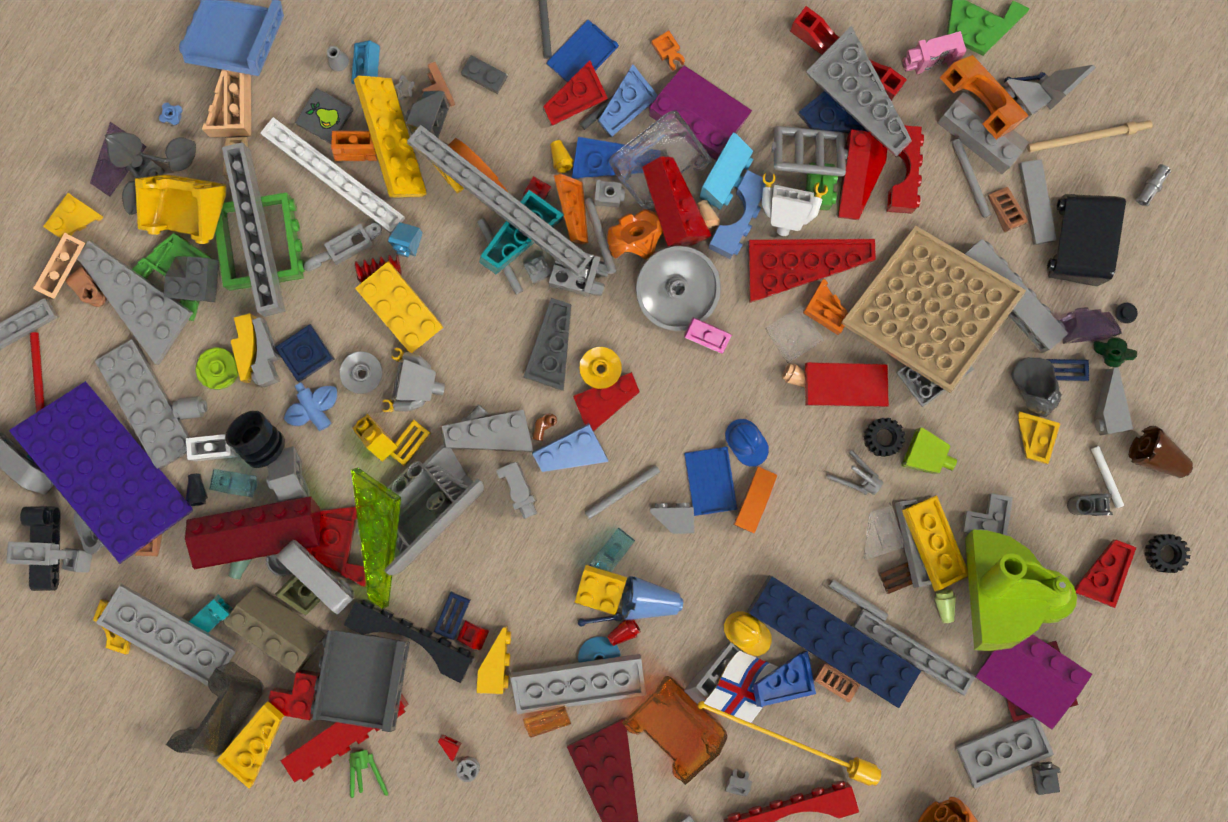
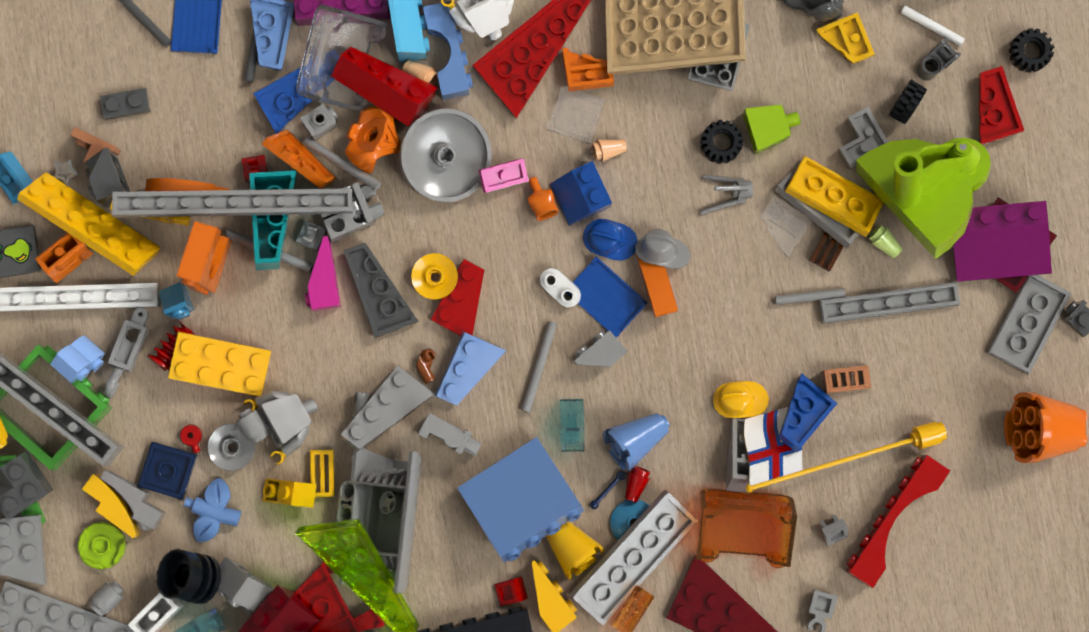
camera: 45 degrees left, 0 degrees up
(305, 225) = (78, 359): none -> light blue brick
(340, 347) = (195, 440): none -> red piece
(386, 369) = (252, 425): none -> light grey brick
(446, 223) = (204, 258): none -> orange arch
(459, 598) = (471, 593): dark blue tile -> none
(519, 308) = (323, 285): none -> dark pink slope
(530, 577) = (521, 500): none -> medium blue panel
(540, 637) = (574, 549): none -> yellow cone
(561, 159) = (252, 123): yellow cone -> none
(576, 96) = (221, 60): red wing -> none
(600, 589) = (588, 463): yellow plate -> none
(684, 447) = (560, 287): none -> white plate
(720, 376) = (541, 201): none -> orange piece
(752, 393) = (581, 193): none -> blue slope
(778, 480) = (662, 249): none -> light grey piece
(834, 641) = (816, 347): dark blue brick -> none
(846, 384) = (654, 123): red tile -> none
(1045, 517) = (908, 102): none -> black tyre

